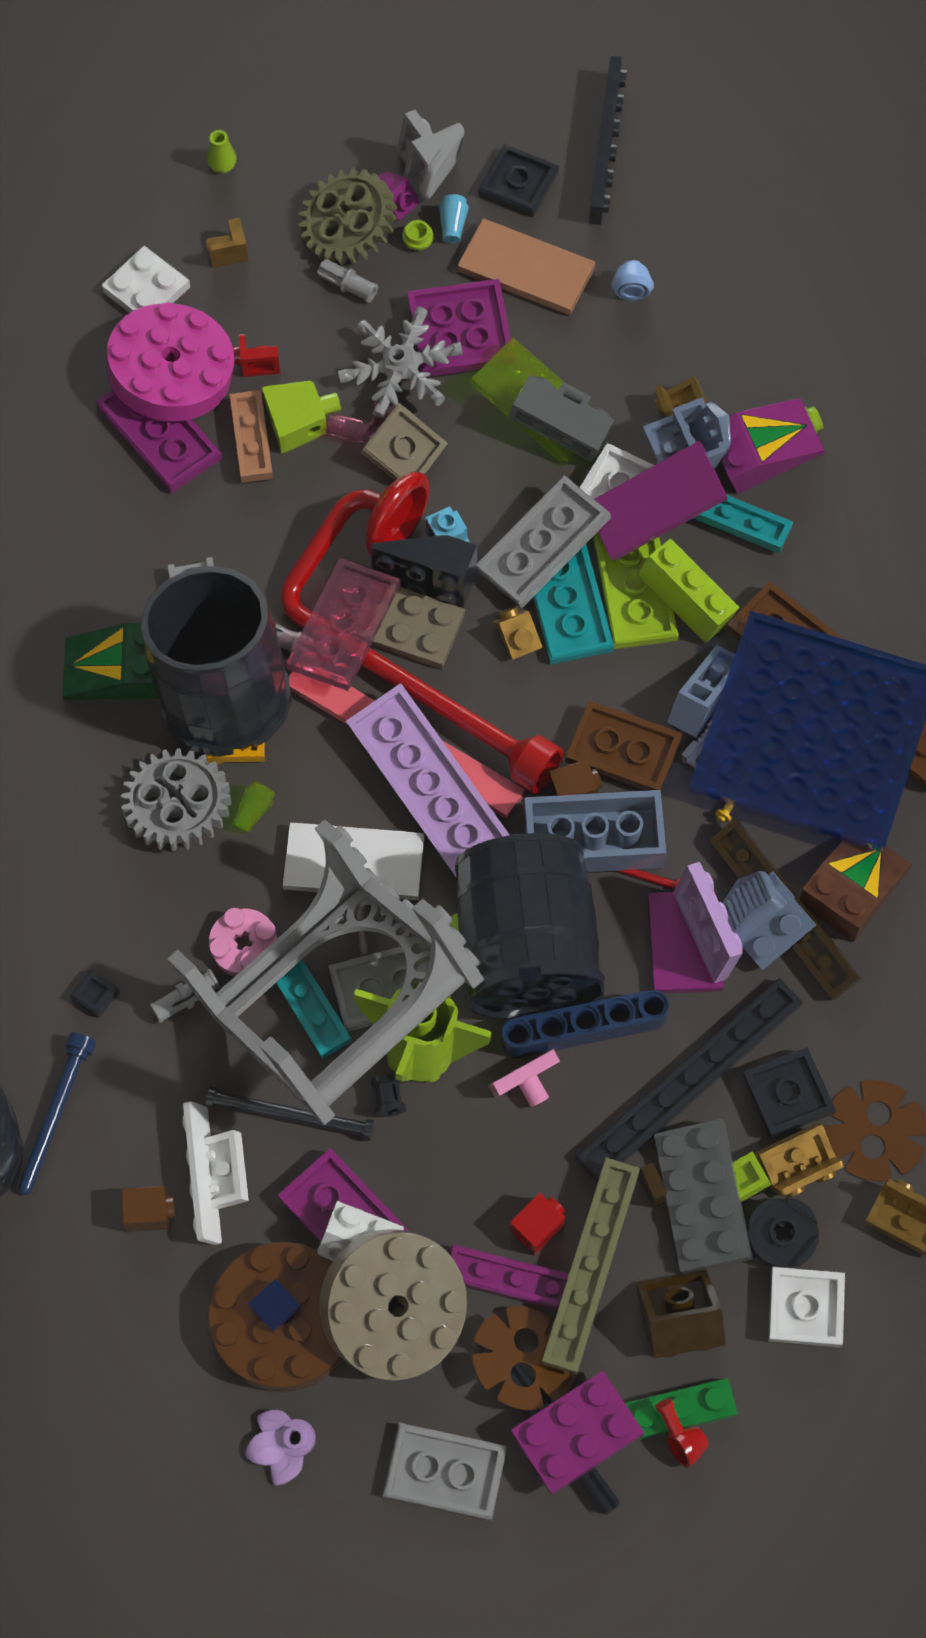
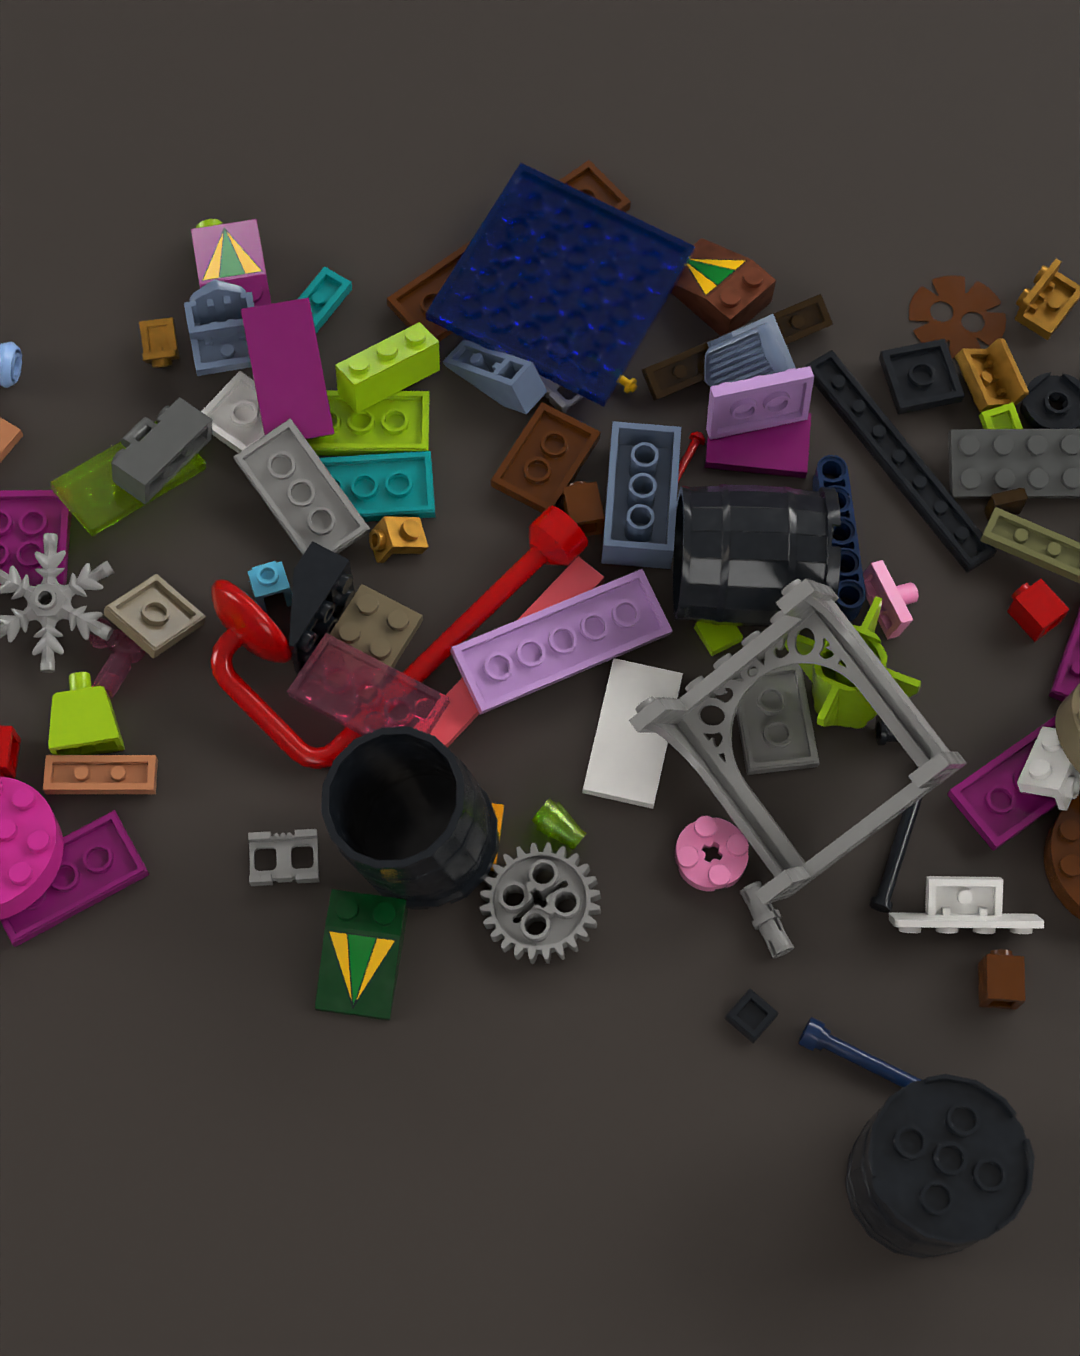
camera: 85 degrees left, 0 degrees up
(313, 1010) = (802, 788): teal plate -> none

